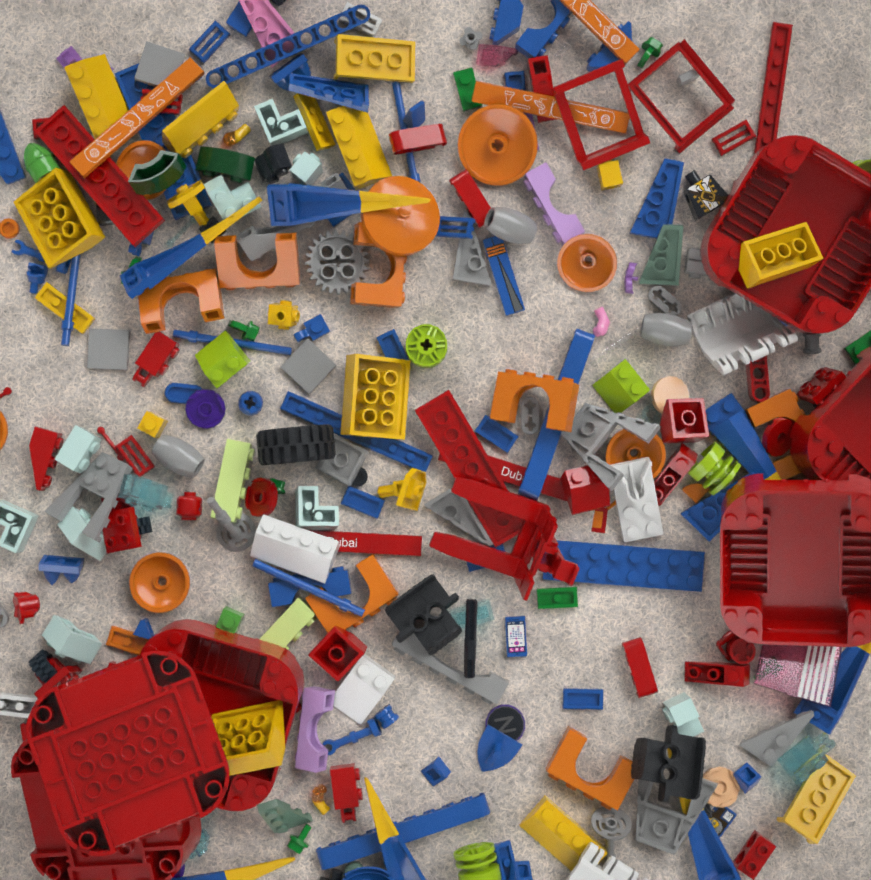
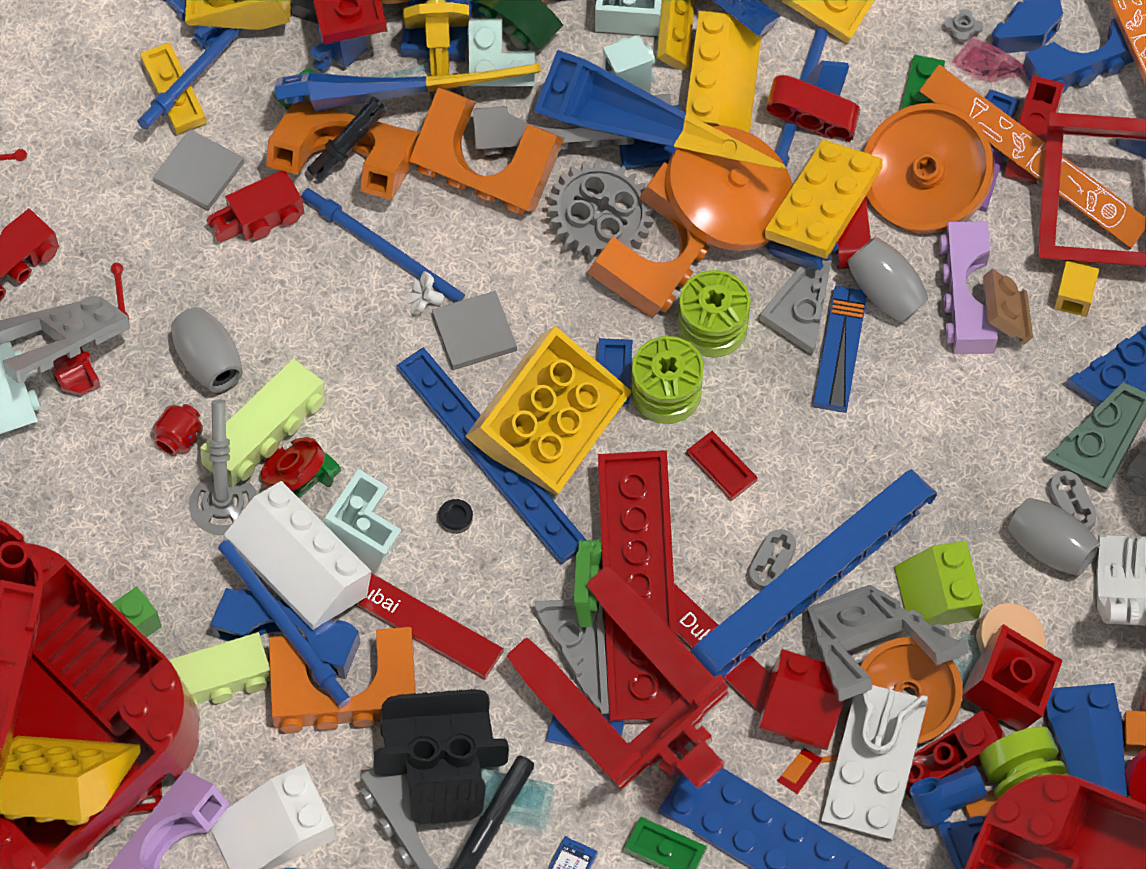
camera: 30 degrees right, 25 degrees down
(36, 275) = (161, 29): blue piece -> none
(78, 449) = (69, 270): light aqua brick -> none
(125, 530) = (65, 400): red plate -> none
(144, 469) = (144, 350): red tile -> none
(144, 492) = (127, 369): clear light blue brick -> none
(146, 587) = (63, 487): orange dish -> none
(152, 424) = (197, 289): yellow brick -> none
(177, 301) = (338, 149): none -> black pin
(180, 392) = (269, 279): blue tile -> none
(205, 408) = (287, 310): dark purple tile -> none
(221, 359) = (354, 257): lime slope -> none
(249, 331) = (415, 242): green piece -> none
(254, 409) = (357, 324): blue piece -> none
(270, 360) = (424, 294): none -> white plant
(273, 163) = (587, 34): black brick -> none
(283, 314) = (479, 239): yellow brick -> none
(295, 444) = (390, 404): black tyre -> none
(314, 327) = (513, 285): blue plate -> none
(338, 652) = (269, 739): red slope -> none
(346, 462) = (446, 479): light grey tile -> none
(362, 502) = (441, 556): blue tile -> none
(408, 490) = (523, 565): yellow piece -> none
(433, 305) = (714, 313): none -> lime wheel
(445, 479) = (586, 568): none -> bright green hinge
(453, 195) = (824, 198): none -> yellow plate
(476, 375) = (722, 465): none -> red tile
(496, 433) = (705, 561): blue tile -> none
(512, 386) = (770, 499): orange arch -> none
(580, 208) = (1007, 306): none -> medium nougat plate
(583, 274) = (957, 379): orange dish -> none
(603, 322) = (957, 487): bright pink arm -> none
(628, 278) = (1033, 443): medium lavender piece -> none
(676, 503) = (938, 798): none -> blue piece

